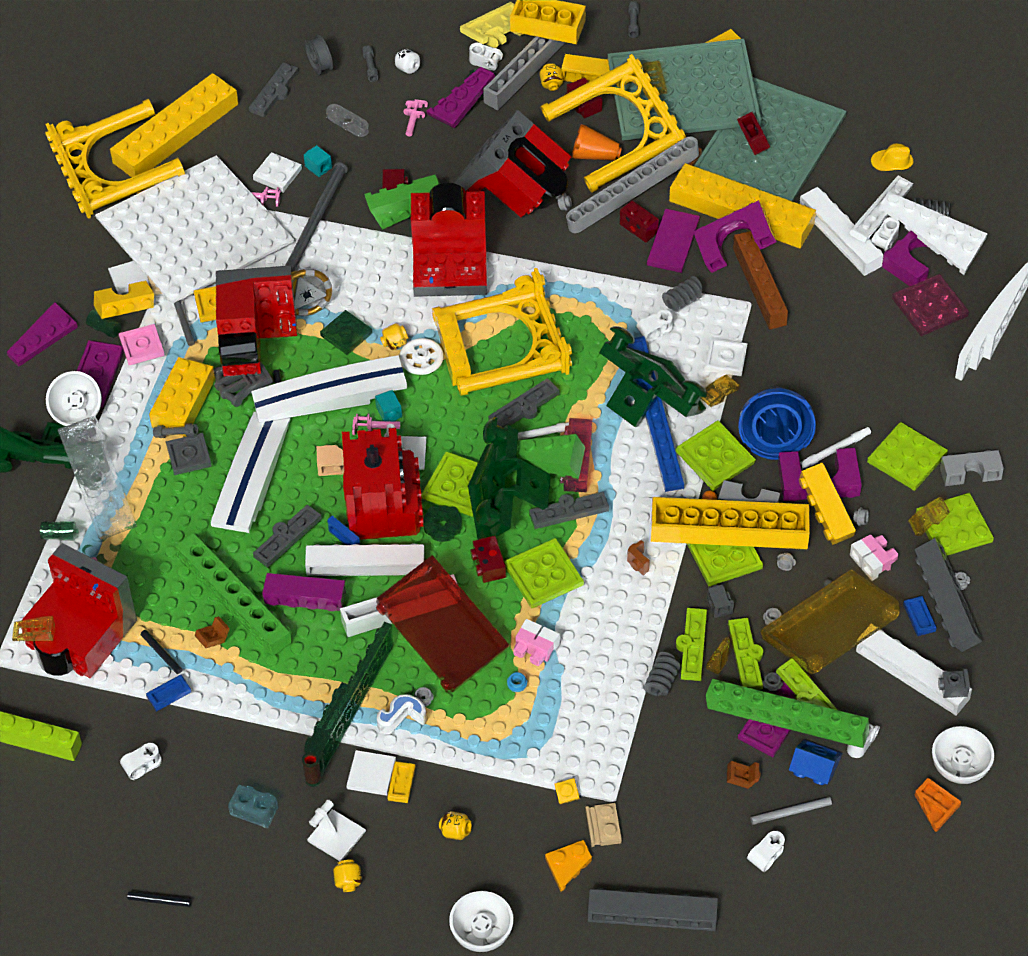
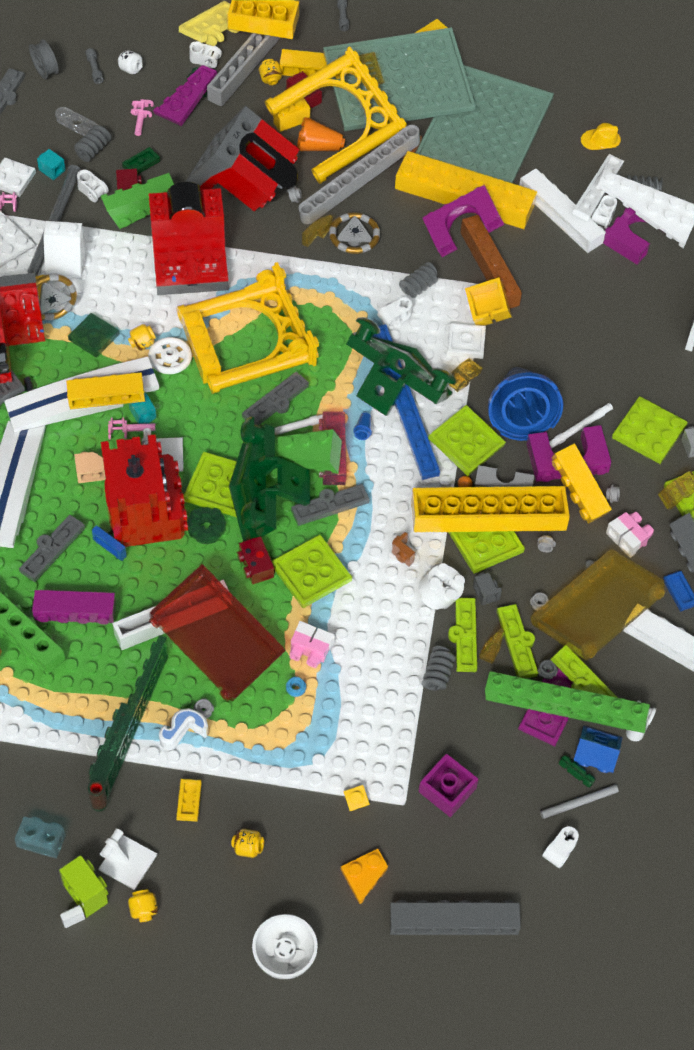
camera: 10 degrees left, 5 degrees up
(278, 881) = (72, 916): none -> white tile
(292, 852) = (84, 886): none -> lime brick
(323, 245) = (64, 249): none -> white slope
(352, 386) = (105, 390): none -> yellow brick
(356, 183) = (91, 185): none -> white piece
(361, 141) = (92, 143): none -> dark grey piece
(363, 559) = (131, 568): white brick -> none
(371, 772) = (157, 792): white tile -> none
(410, 161) = (142, 160): none -> dark green plate
(569, 122) = (292, 115): none -> yellow brick
(585, 237) = (318, 228): none -> clear yellow slope
(603, 824) = (395, 830): tan plate -> none
(610, 436) = (363, 427): none -> blue cone
(621, 244) = (354, 233): none -> light grey piece
(639, 221) = (369, 206): dark red brick -> none
(659, 784) = (448, 785): none -> magenta brick
(673, 240) = (403, 227): magenta tile -> none
(673, 595) = (441, 587): none -> white brick
(743, 775) = (529, 768): dark orange bracket -> none
(751, 319) = (488, 302): none -> yellow piece
(753, 133) = (470, 118): dark red brick -> none
(791, 781) = (577, 771): none -> dark green axle
(930, 305) = (654, 279): clear pink plate -> none

